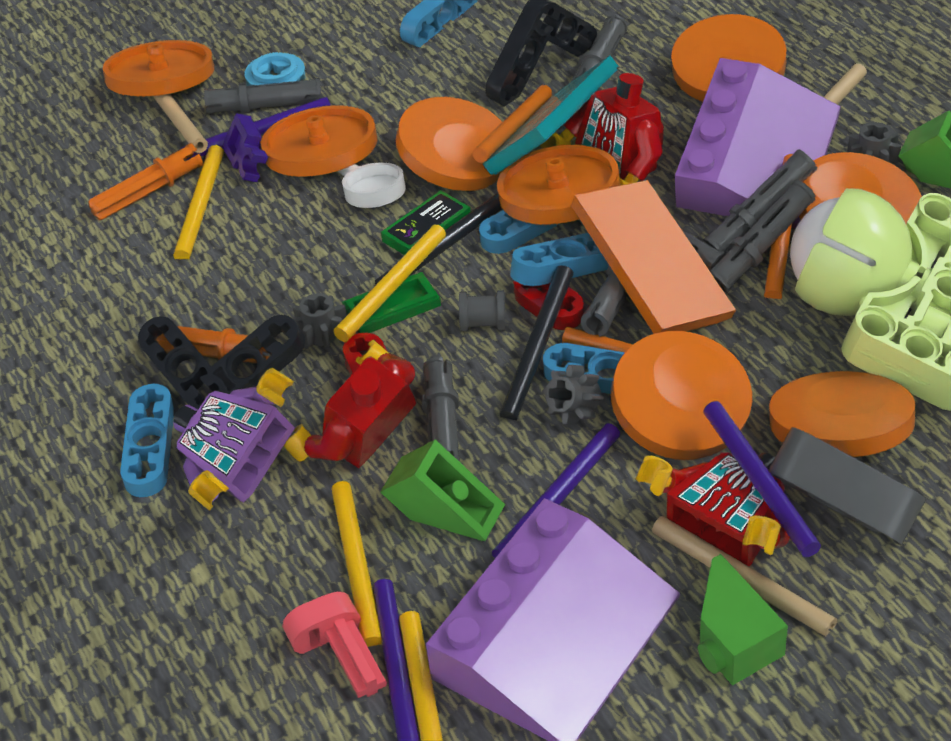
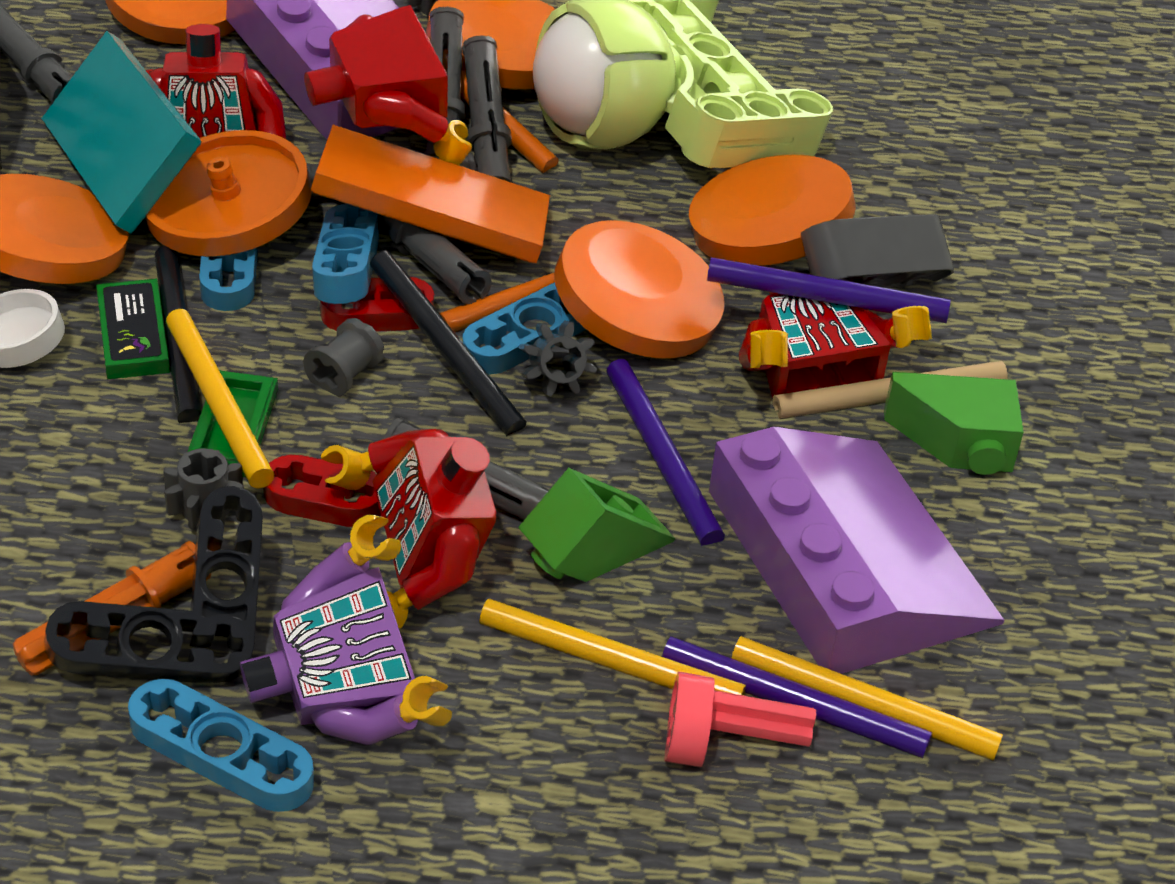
camera: 65 degrees left, 0 degrees up
(512, 124) = (69, 171): orange bar -> none
(700, 169) = (390, 78): none -> red torso

